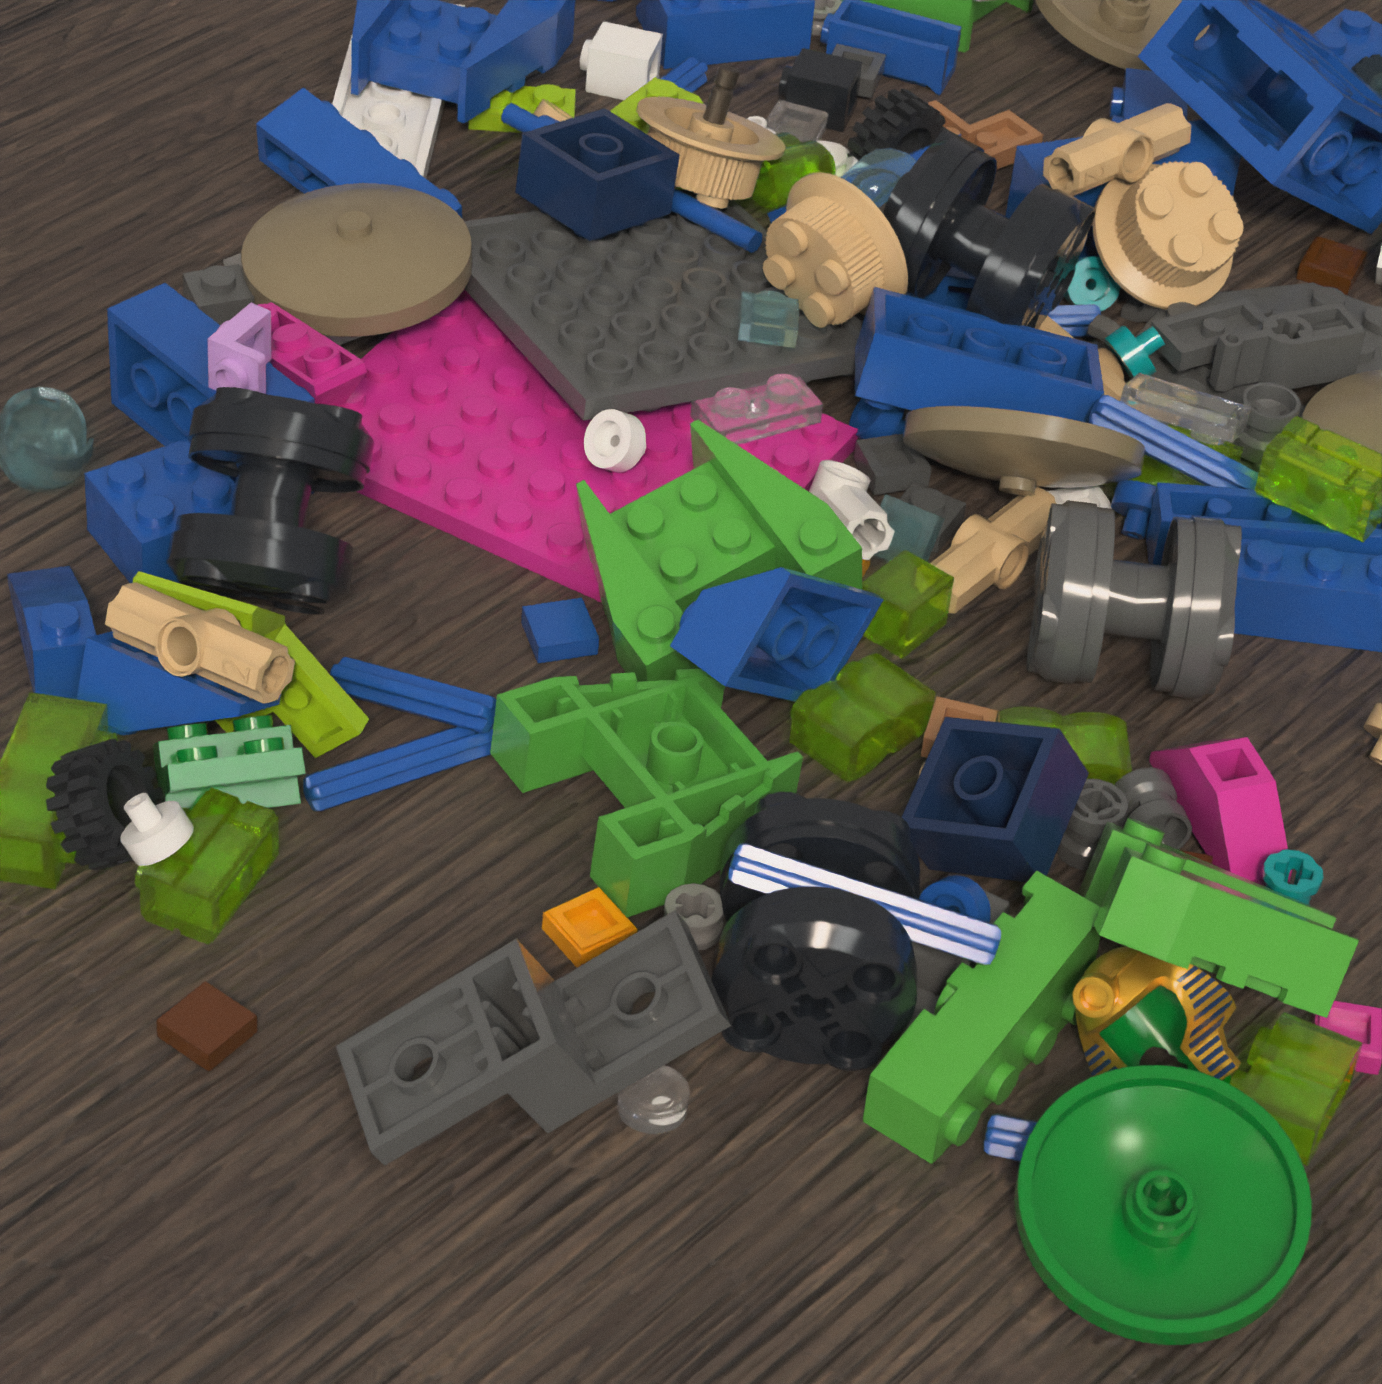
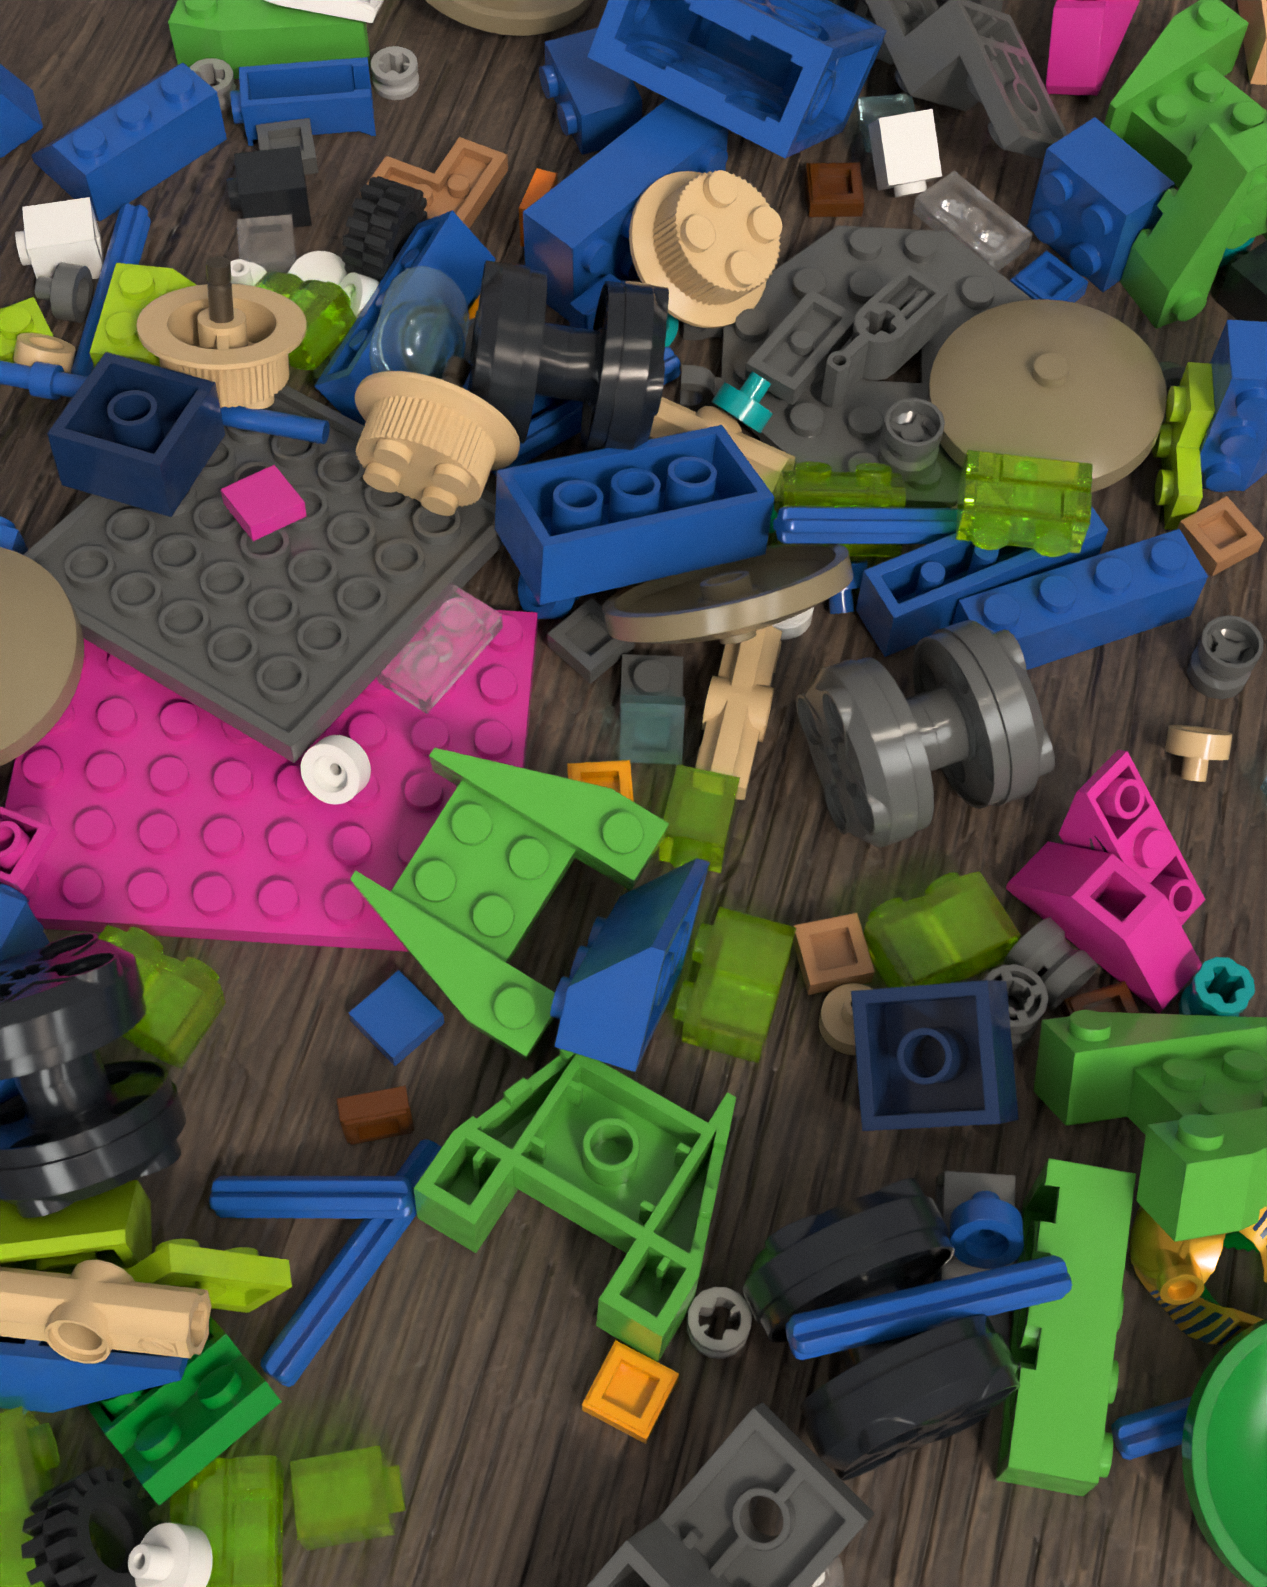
camera: 25 degrees left, 20 degrees up
(314, 878) = (346, 1497): none -> clear neon green brick
(384, 533) = (178, 997): none -> clear neon green brick
(498, 665) = (375, 1115): none -> reddish brown tile
(604, 89) = (68, 292): none -> dark grey tile
(671, 260) = (263, 502): none -> dark pink tile
(768, 318) = (399, 537): clear light blue plate -> none
(846, 494) = (579, 731): white piece -> none
(984, 57) = (395, 73): none -> light grey bush
(1117, 149) = (630, 186): tan piece -> none
(1206, 415) = (853, 477): clear plate -> none
(1270, 708) = (1120, 818): none -> dark pink slope

